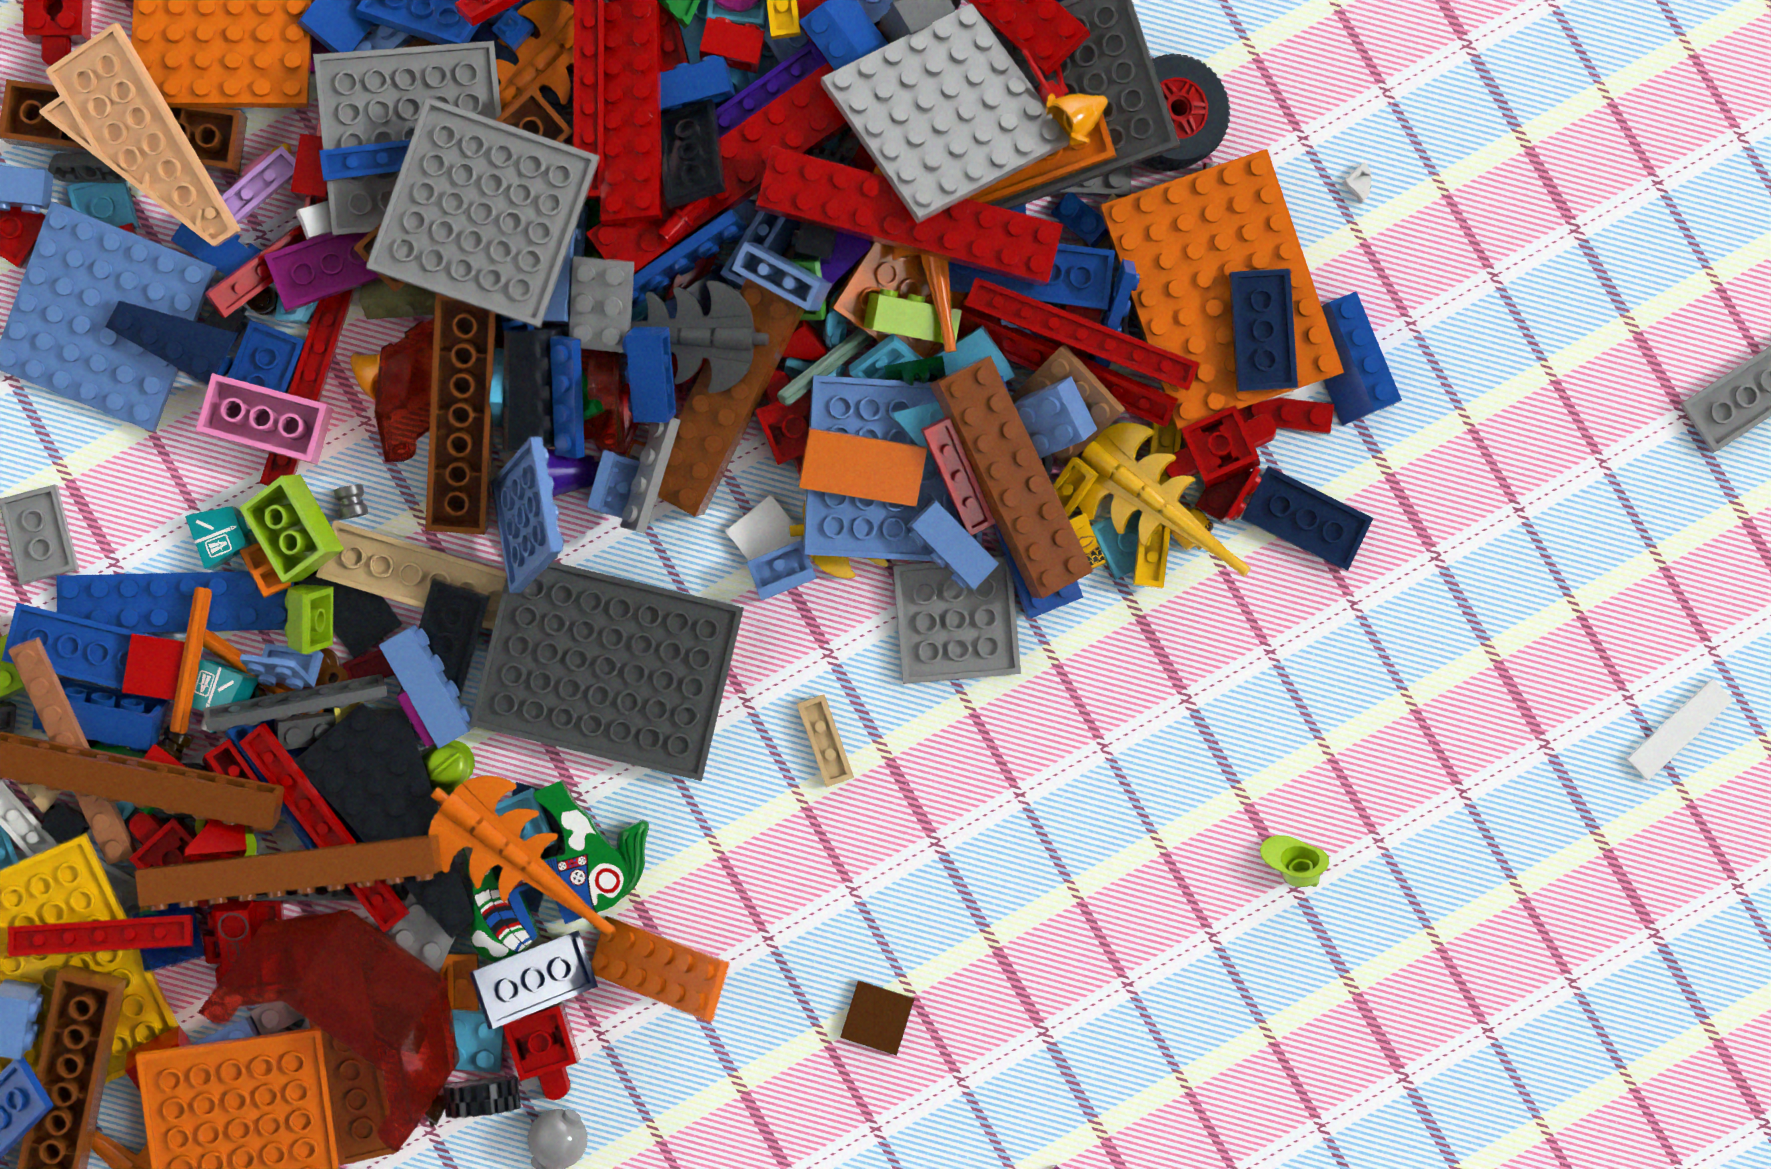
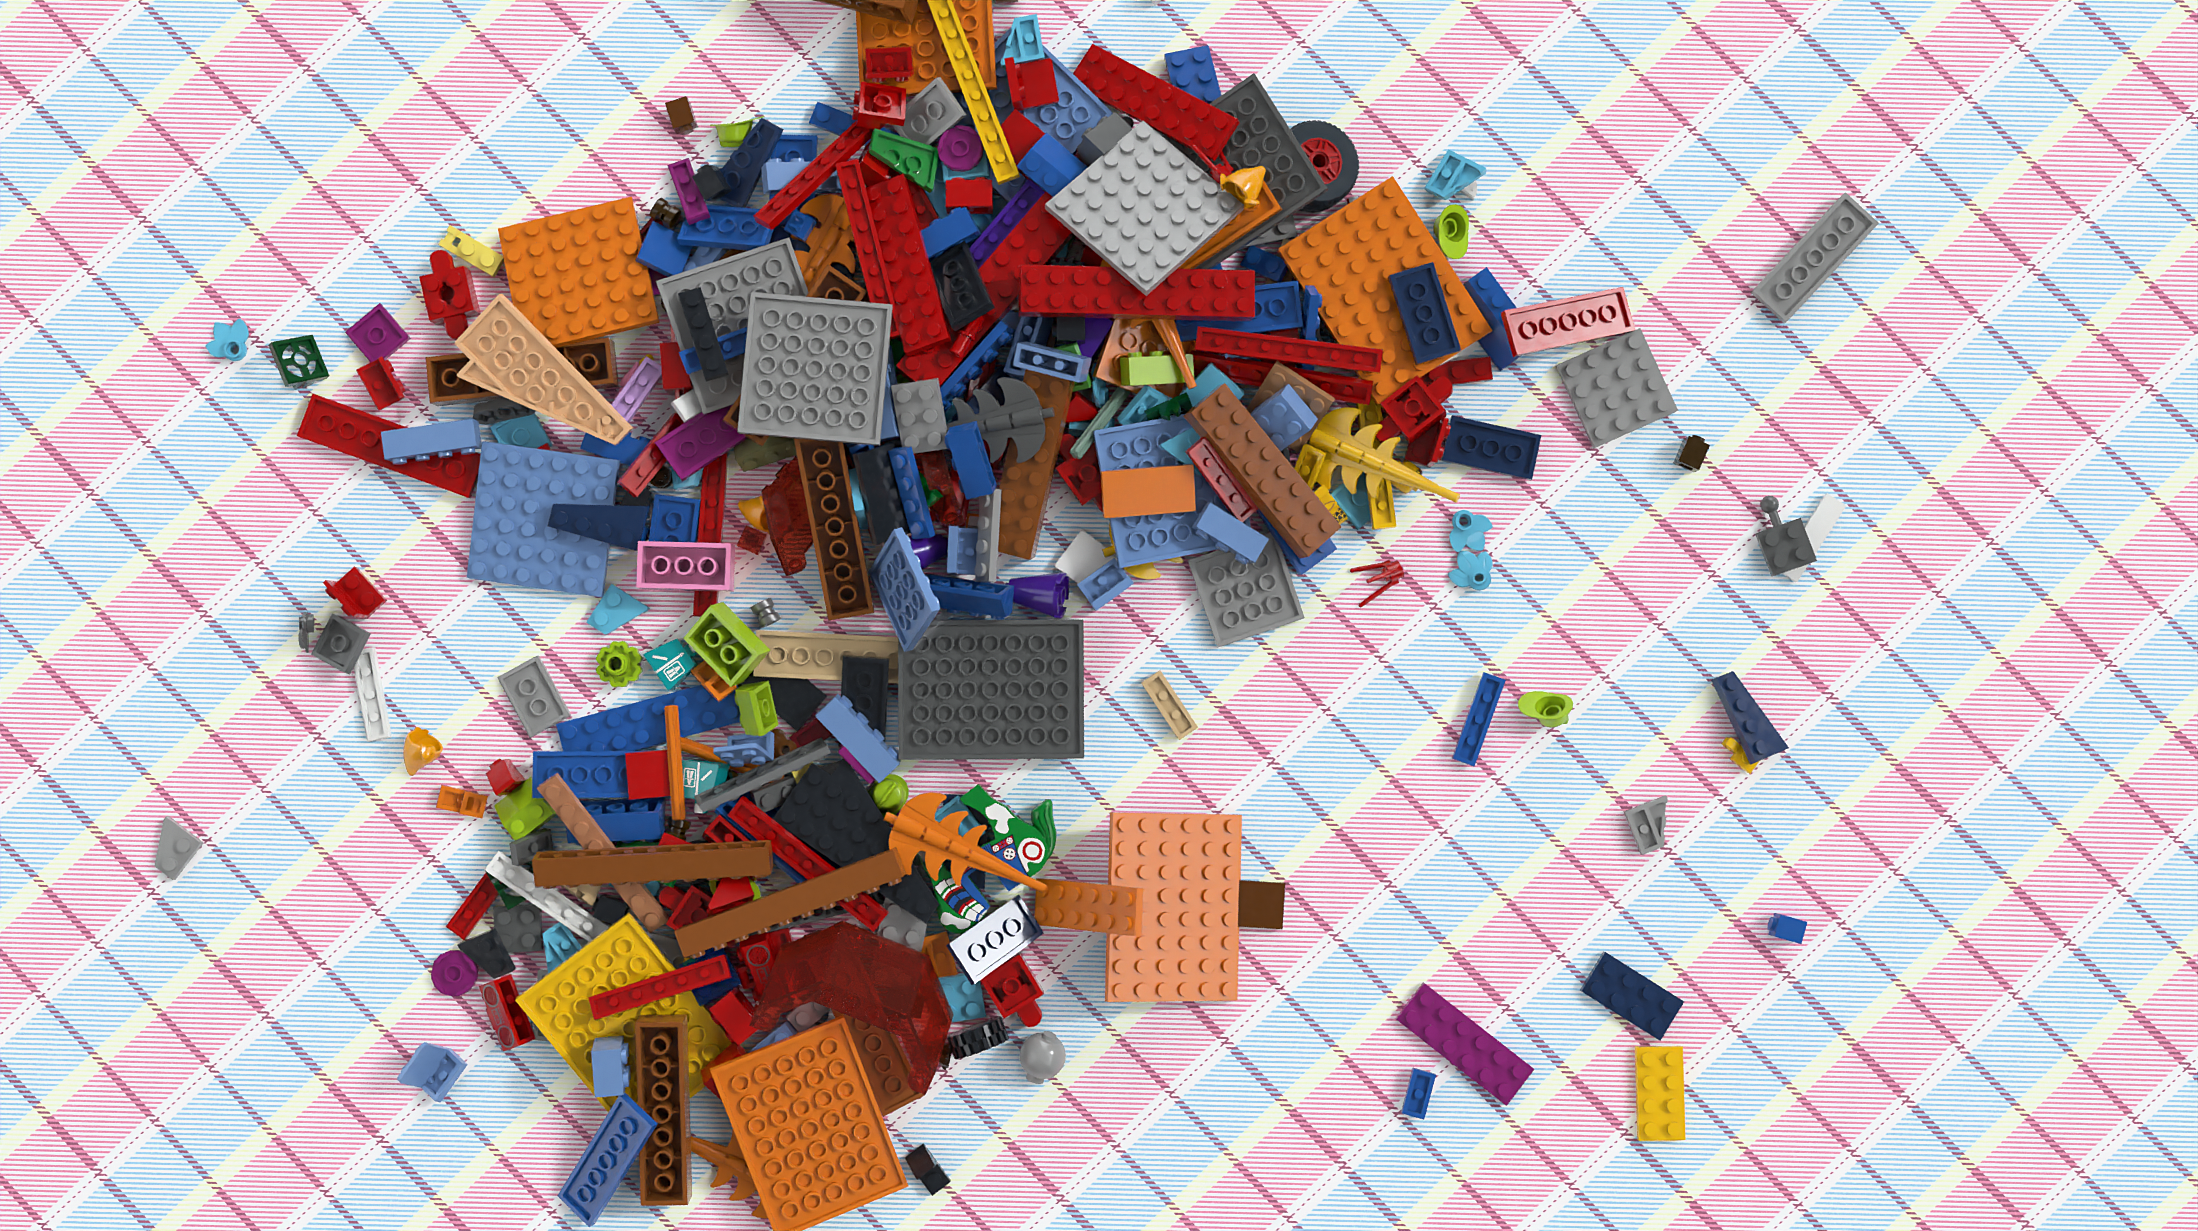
camera: 10 degrees left, 0 degrees up
(153, 520) = (619, 664): none -> lime plant
(165, 452) = (615, 610): none -> medium azure wing
(184, 994) = (734, 1014): none -> red brick
(355, 135) = (703, 334): none -> black plate
(356, 407) = (752, 540): none -> clear red plate
(609, 543) = (972, 596): none -> blue slope
(699, 561) = (1042, 593): none -> dark purple cone
(784, 997) = (1189, 907): none -> orange plate
(1143, 643) = (1391, 572): none -> red plant
(1206, 853) = (1478, 719): none -> blue plate
(1245, 661) = (1469, 568): none -> medium azure plate
(1253, 620) = (1471, 533): none -> medium azure plate
(1325, 236) = (1452, 231): none -> lime piece
(1344, 166) = (1453, 175): none -> medium azure wing
(1385, 1037) = (1648, 824): none -> light grey wing
(1441, 384) = (1567, 321): none -> plate
(1482, 482) = (1616, 388): none -> light grey plate
(1527, 980) = (1739, 756): none -> yellow plate
(1544, 941) = (1749, 722): none -> dark blue wing
(1556, 587) = (1691, 453): none -> dark brown brick
(1644, 730) = (1785, 544): none -> dark grey plate

